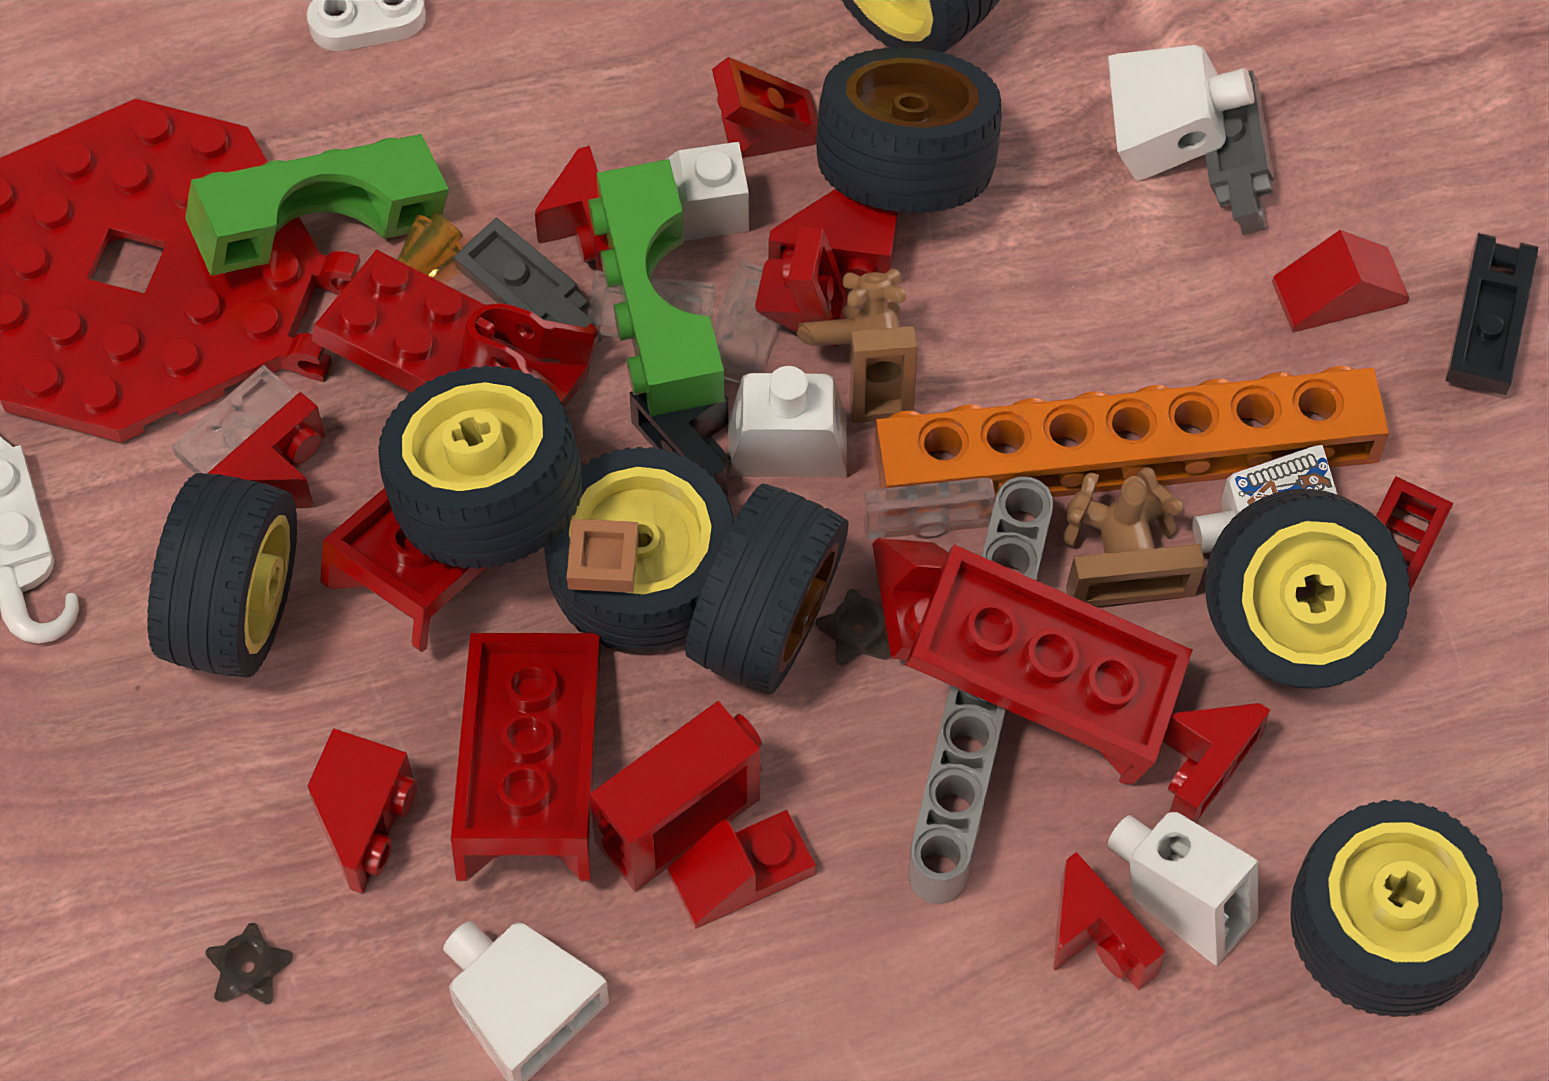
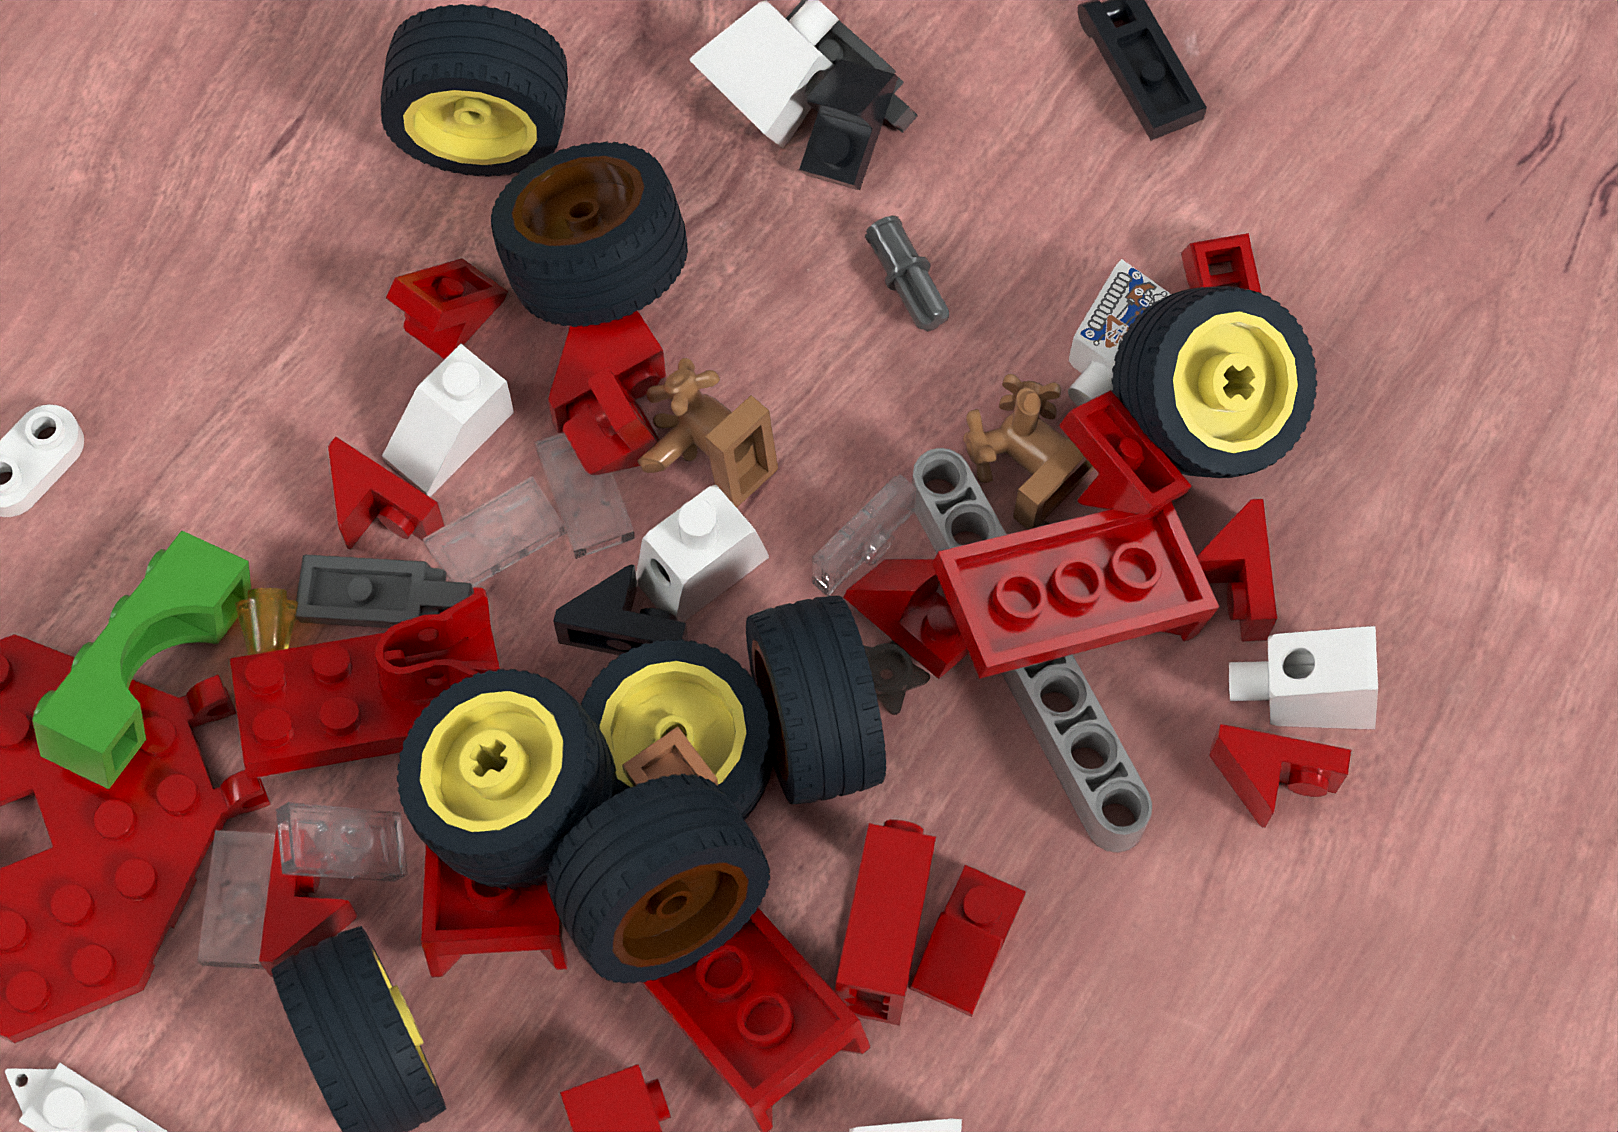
camera: 40 degrees left, 5 degrees up
(334, 435) = (341, 842): none -> clear plate
(524, 618) = (657, 878): none -> black wheel
(673, 349) = (568, 561): bright green arch -> none
(1146, 337) = (907, 273): none -> dark grey axle
(1175, 594) = (1131, 468): none -> red slope
(1204, 186) = (848, 122): none -> black slope
(1339, 282) = (1009, 121): red slope -> none
(1345, 397) = (1101, 210): orange brick -> none
(1396, 908) = (1474, 582): wheel -> none

